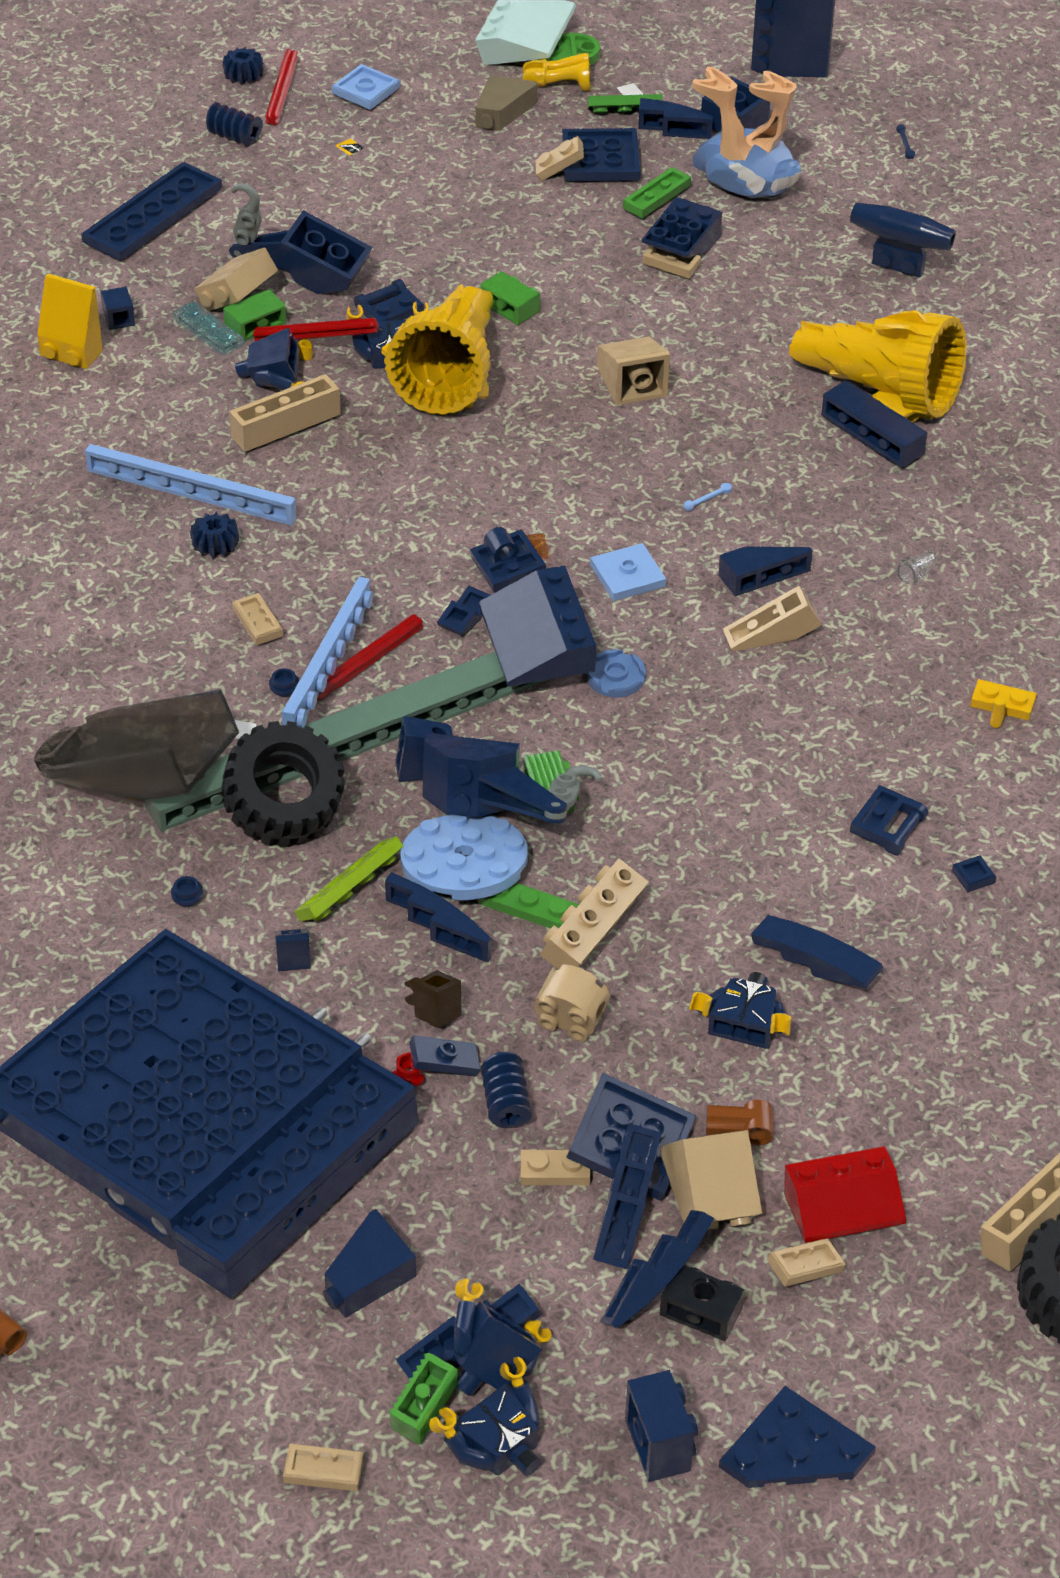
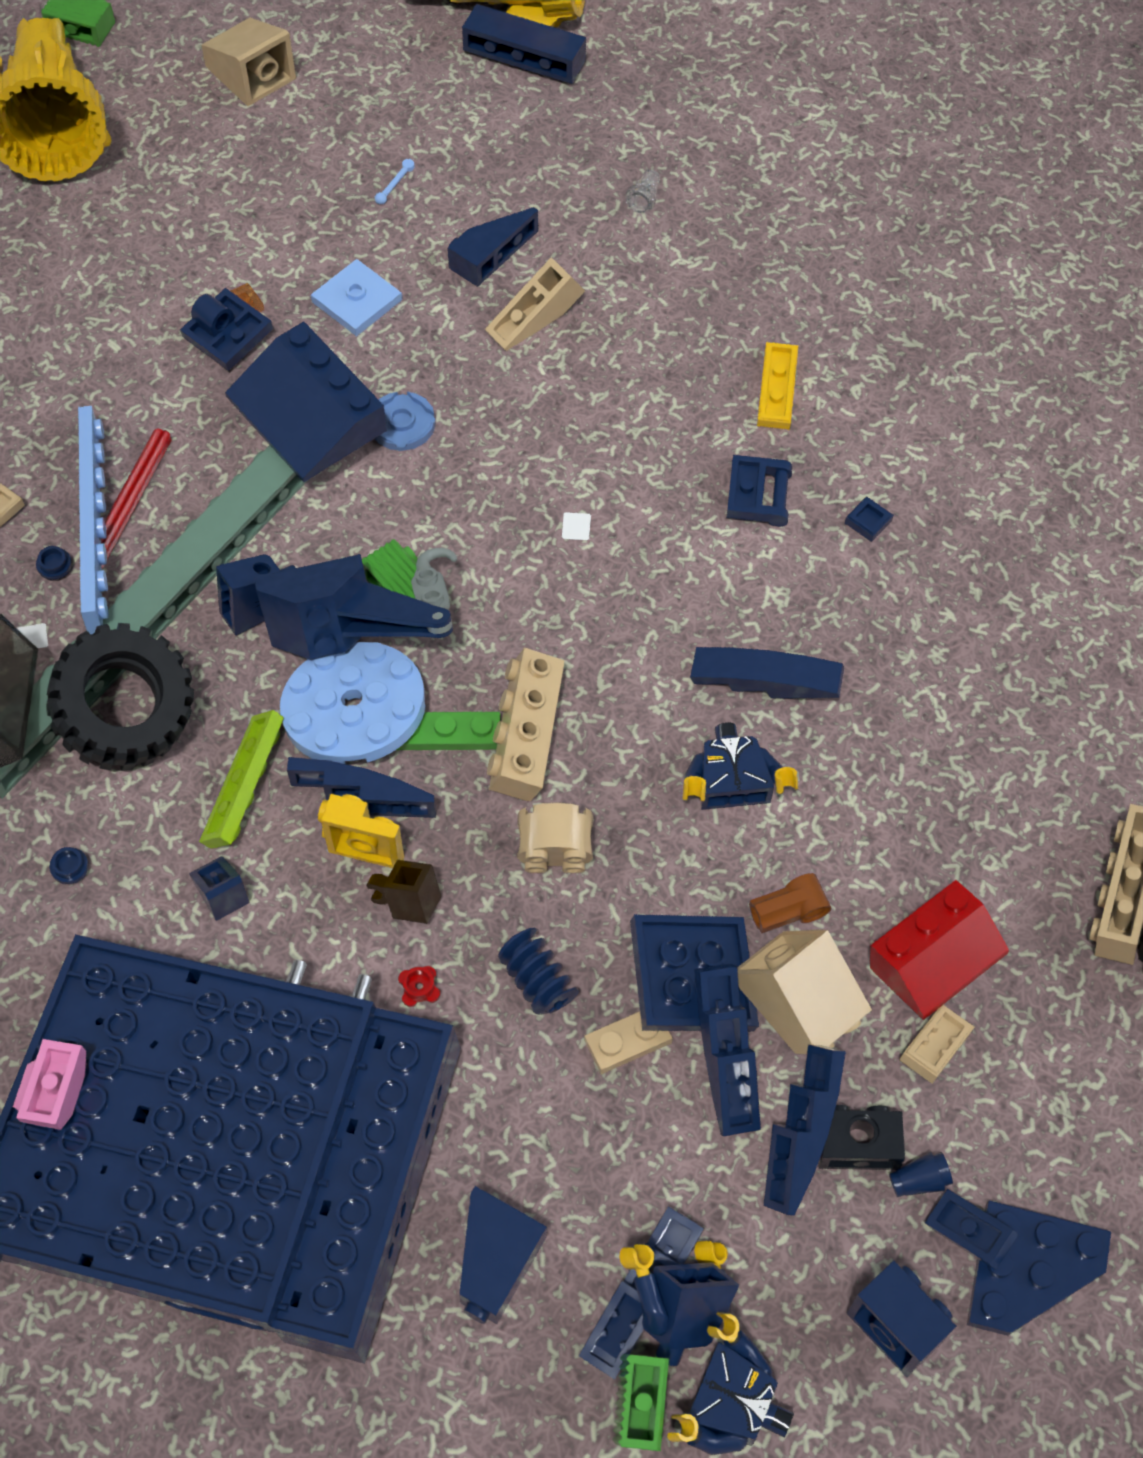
camera: 25 degrees left, 15 degrees up
(98, 1013) = (51, 1085): none -> bright pink slope
(415, 942) = (356, 835): none -> yellow plate
(444, 1055) = (450, 956): dark blue plate -> none
(463, 614) = (210, 404): dark blue slope -> none
(719, 797) = (576, 526): none -> white sticker
(739, 1347) = (922, 1176): none -> dark blue cone
(756, 1394) = (971, 1229): none -> dark blue plate
(951, 749) = (777, 385): none -> yellow tile
(1002, 701) = (800, 313): yellow plate -> none

